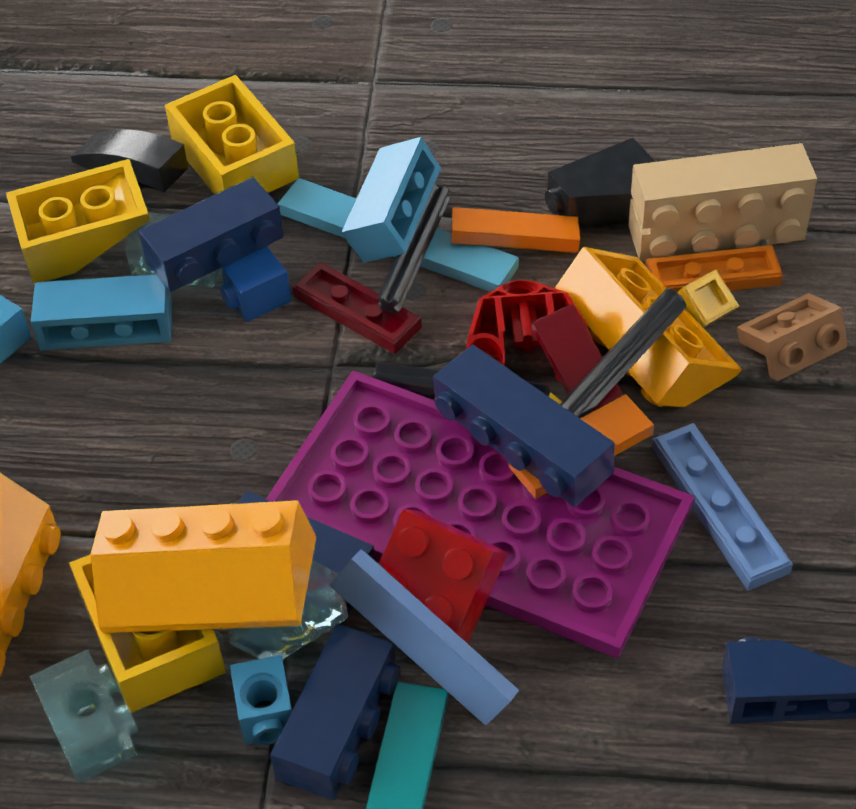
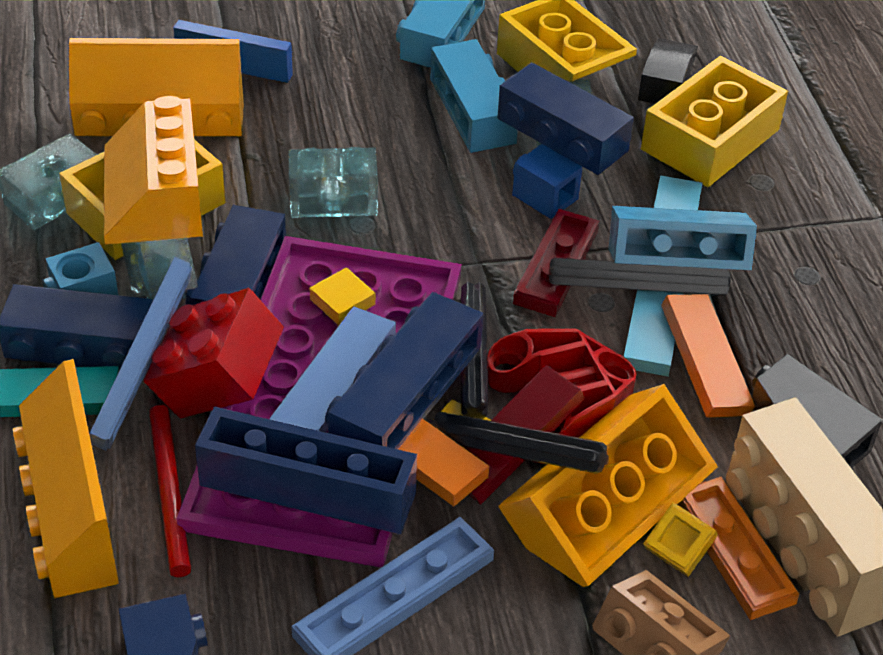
camera: 70 degrees right, 5 degrees down
(195, 450) = (333, 182): none -> clear light blue brick
(375, 466) = (340, 293): none -> yellow tile
(491, 497) = (334, 369): none -> medium blue tile
(564, 728) = (65, 487): none -> light orange slope
(575, 660) = (169, 491): none -> red bar
(616, 519) = (306, 469): none -> dark blue brick

